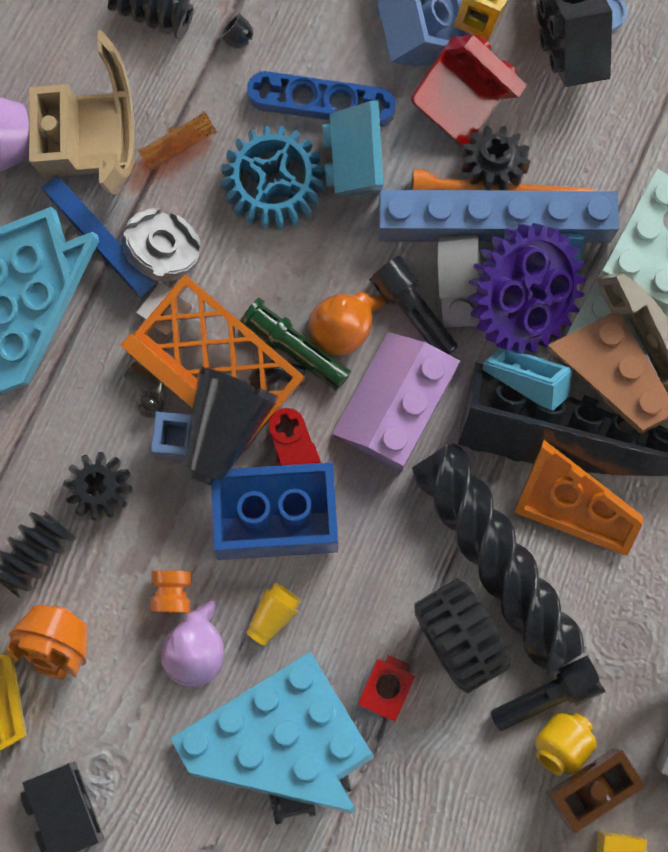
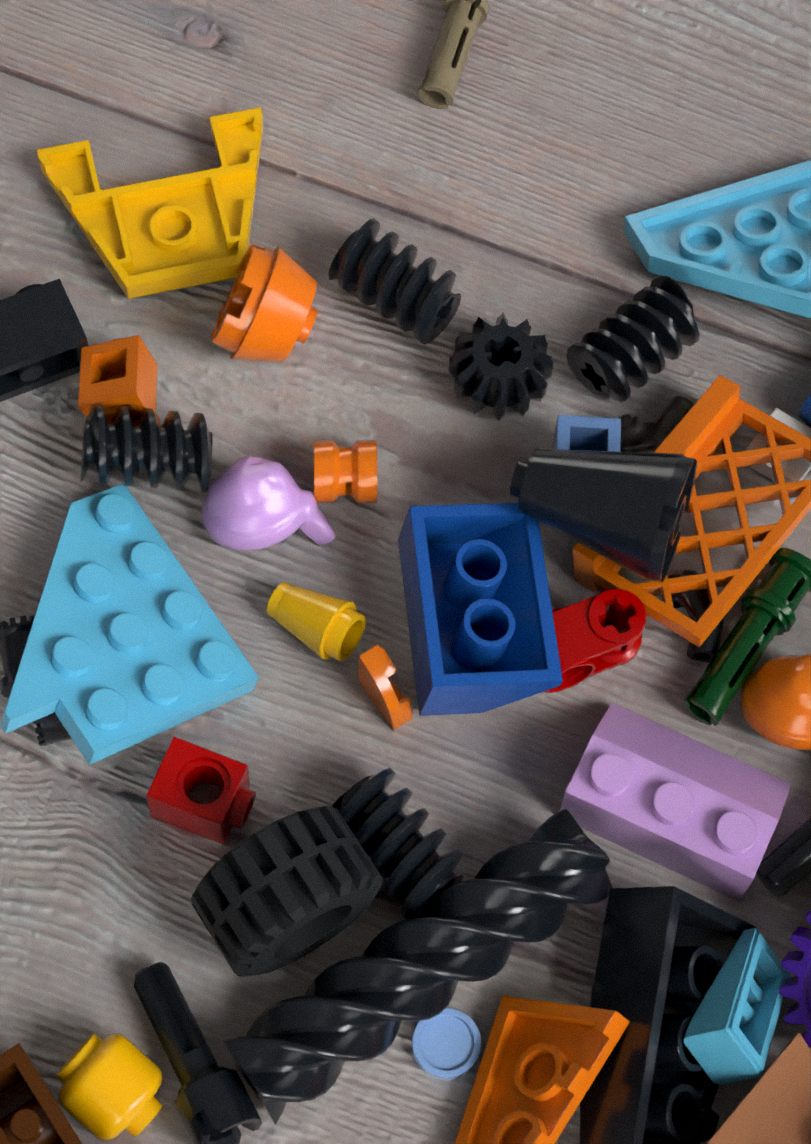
camera: 85 degrees right, 15 degrees down
(84, 397) = (635, 340): none -> black piece
(94, 753) = (118, 375): none -> orange brick
(151, 722) = (147, 447): none -> black piece
(321, 572) = (374, 676): none -> orange tile
(422, 568) = (396, 842): none -> black piece
(541, 544) = (446, 1044): none -> light blue piece

